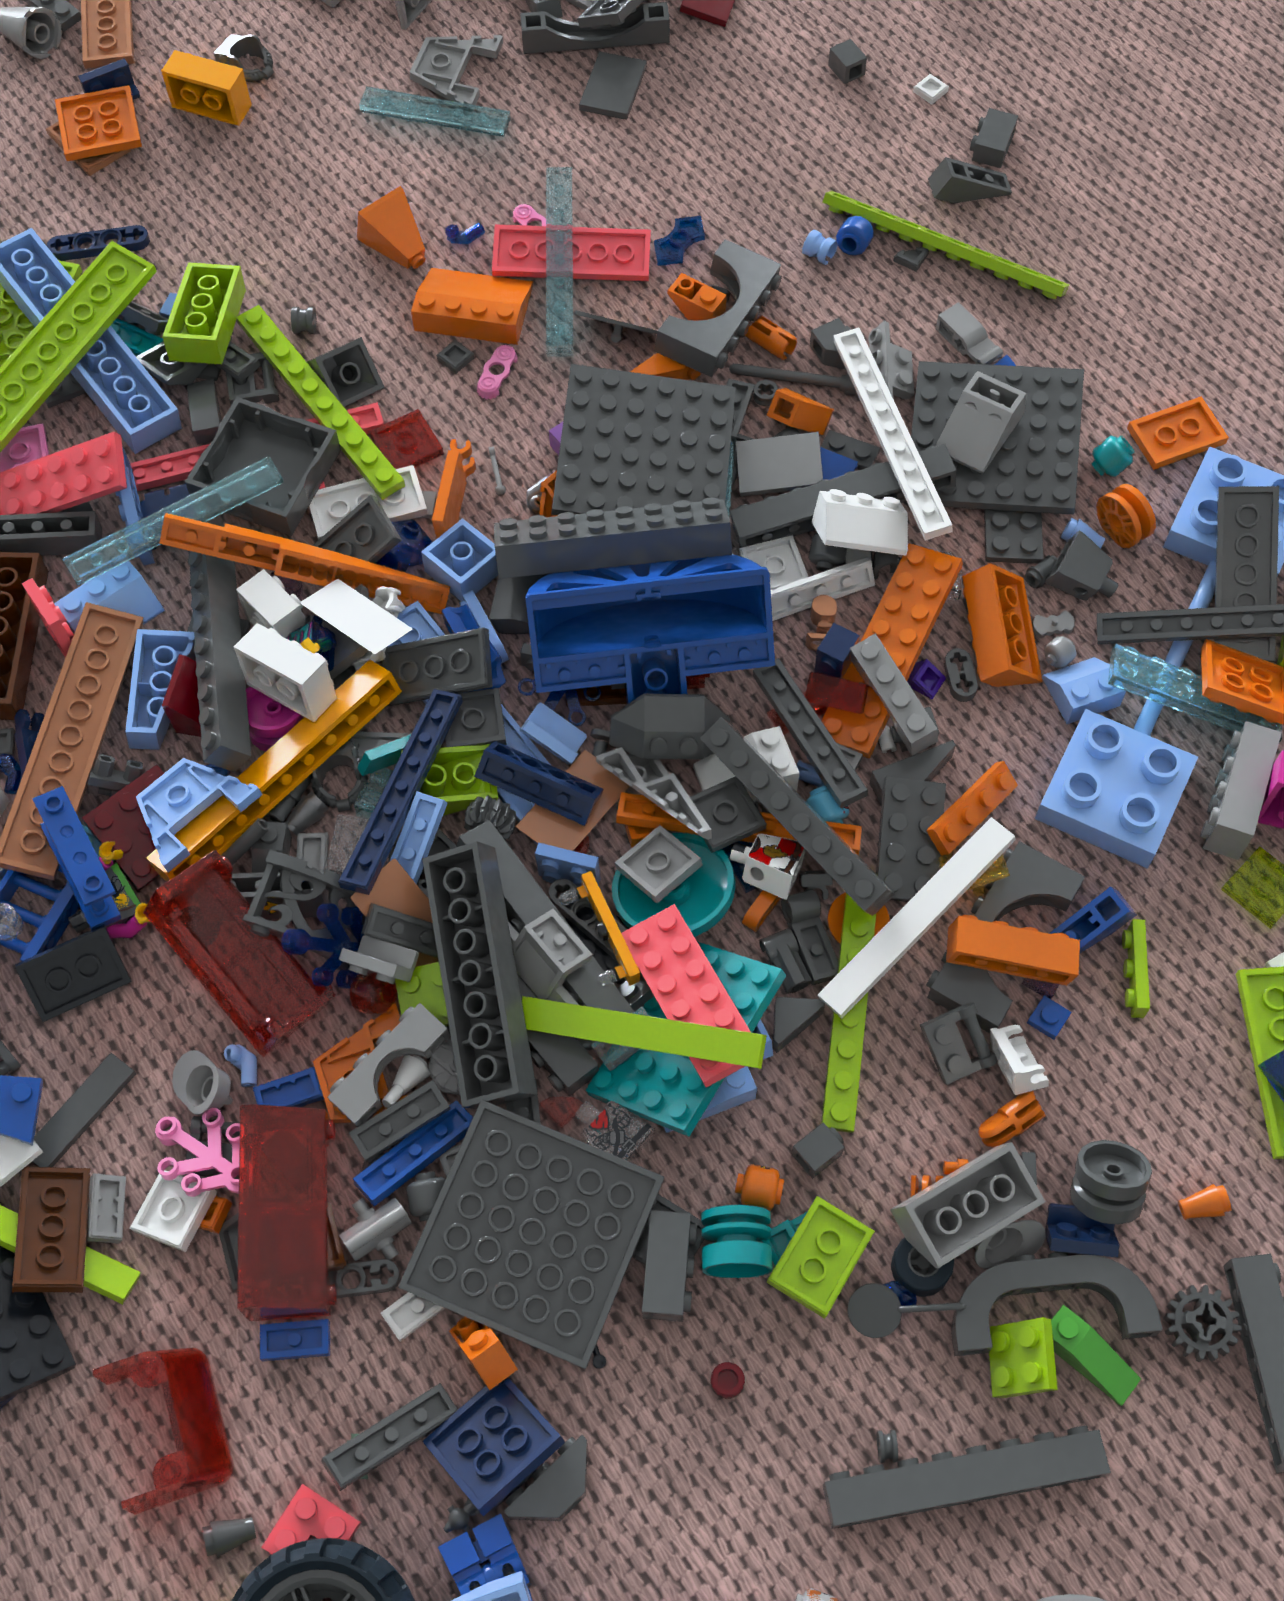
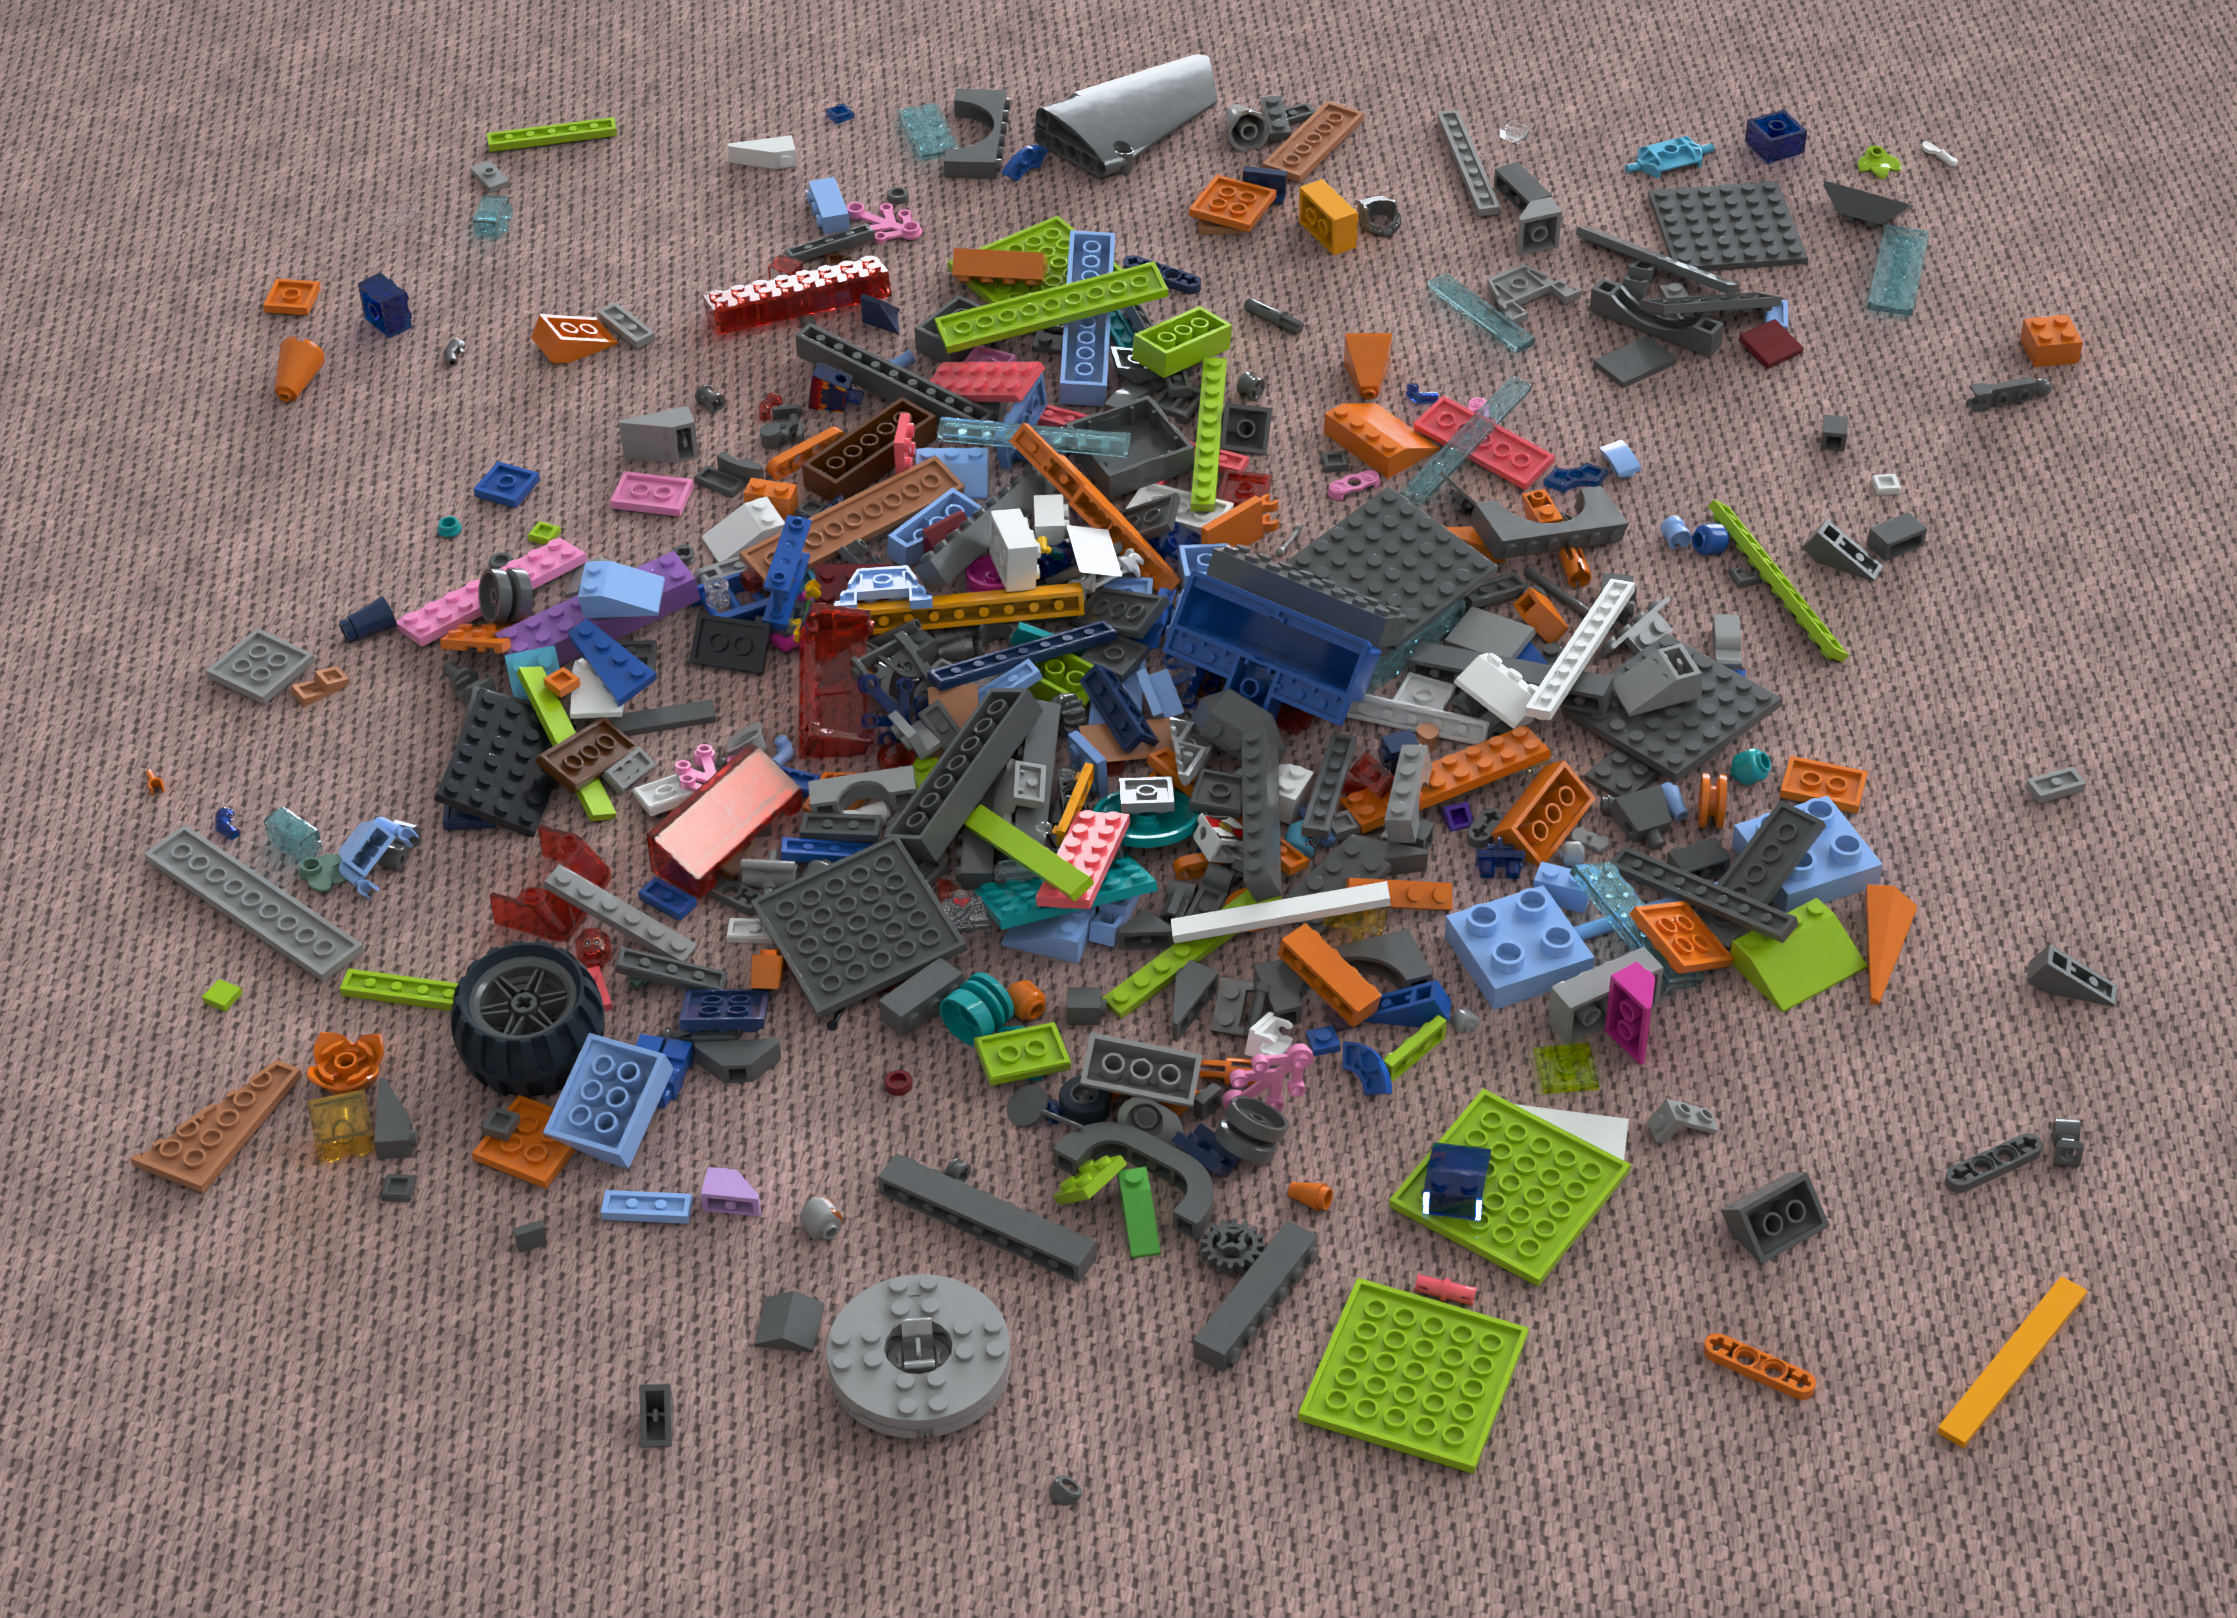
camera: 40 degrees right, 20 degrees down
(27, 882) = (750, 580): none -> clear red tile
(244, 227) = (1275, 316): none -> dark grey axle
(275, 1412) = (619, 914): none -> light grey plate
(279, 1469) = (593, 948): none -> clear red head
(701, 195) = (1621, 459): none -> light blue slope
(896, 1060) = (1193, 991): none -> dark grey slope
(1001, 712) = (1499, 856): none -> clear blue hips
(1099, 1081) = (1295, 1060): none -> bright pink plant
(1123, 1021) = (1368, 1067): none -> blue tile
(1140, 899) = (1464, 1020): none -> light grey piece
(1164, 585) = (1702, 859): none -> dark grey brick

